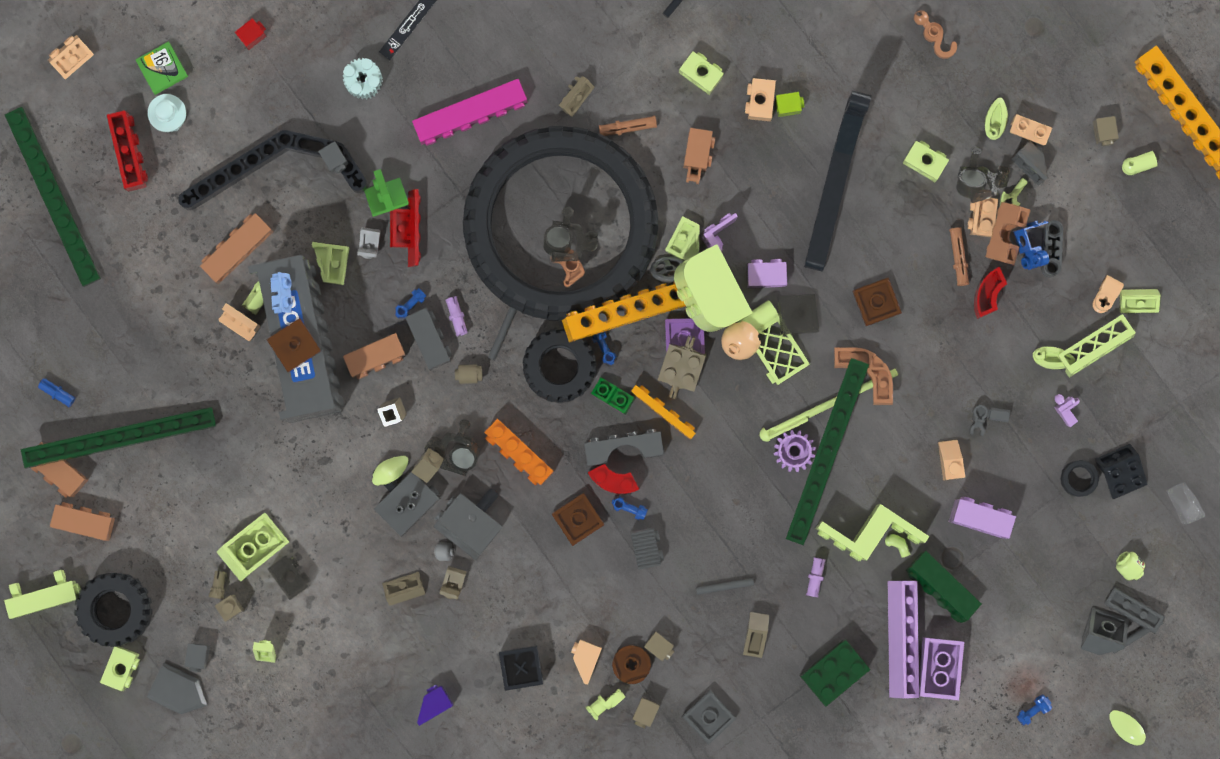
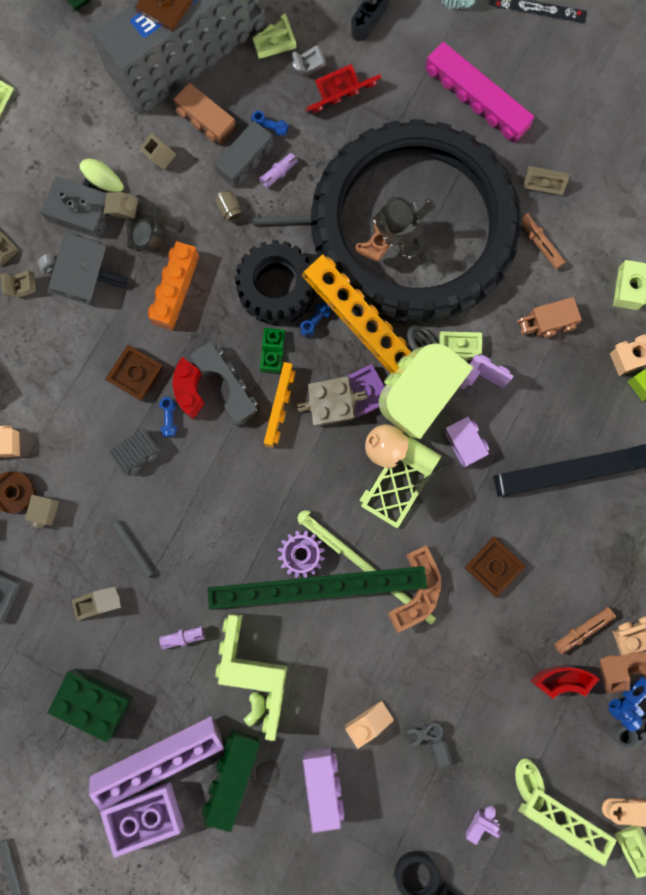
camera: 70 degrees right, 5 degrees down
(385, 195) = (361, 51): bright green bracket -> none

